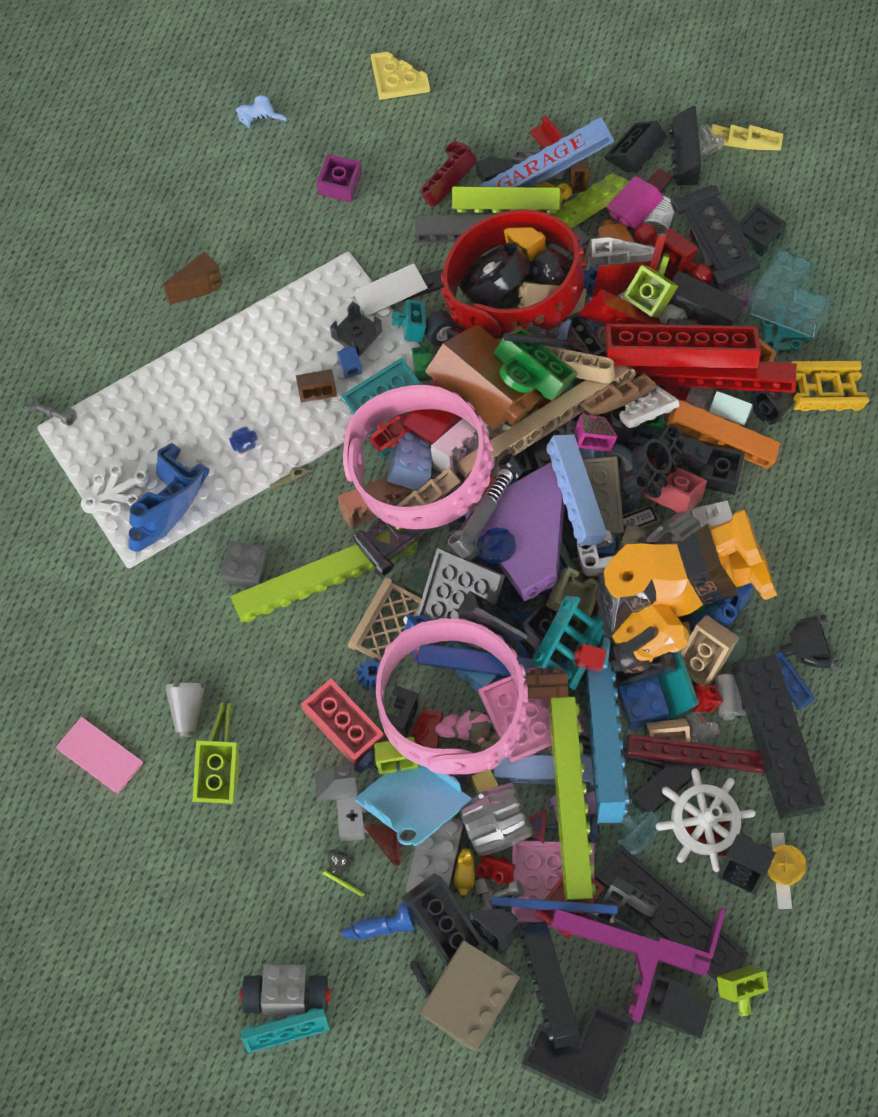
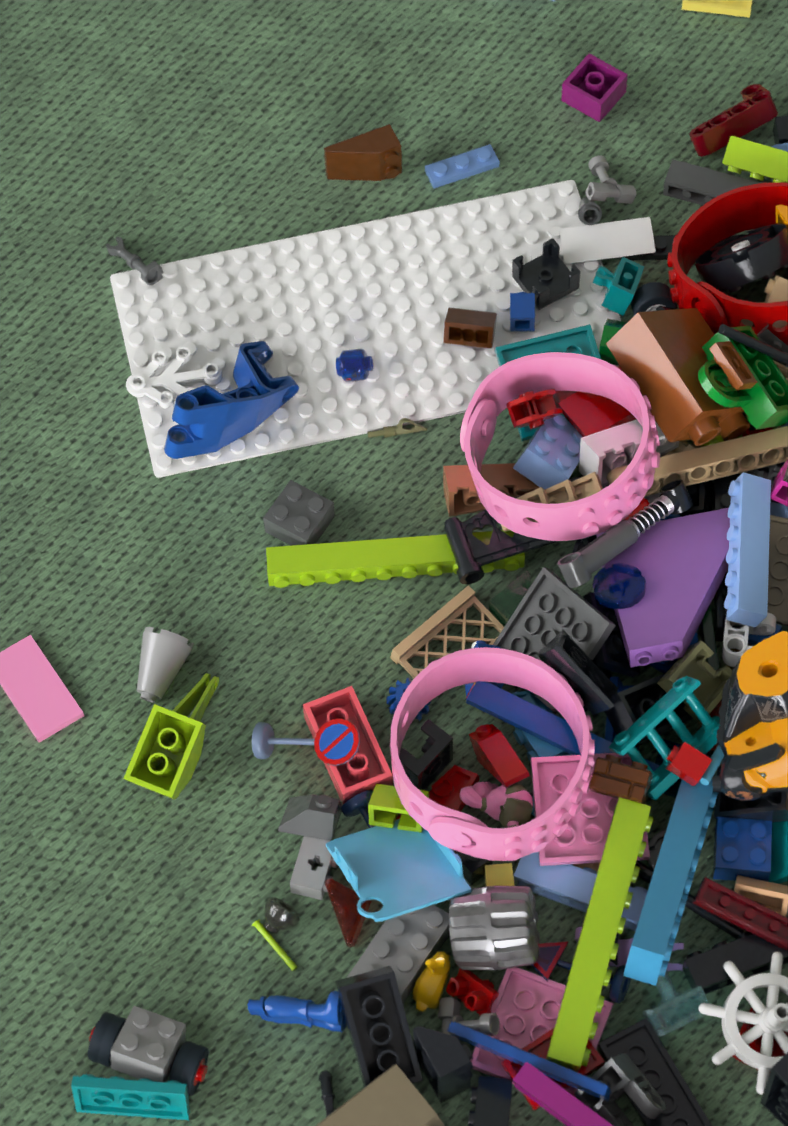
camera: 20 degrees right, 5 degrees down
(264, 265) = (462, 166): none -> medium blue plate
(335, 724) = (334, 742): none -> piece
(369, 272) = (589, 212): none -> dark grey cone
(376, 249) = (608, 186): none -> light grey bar
(452, 694) = (497, 755): none -> red slope
(522, 361) = (732, 364): none -> dark orange plate

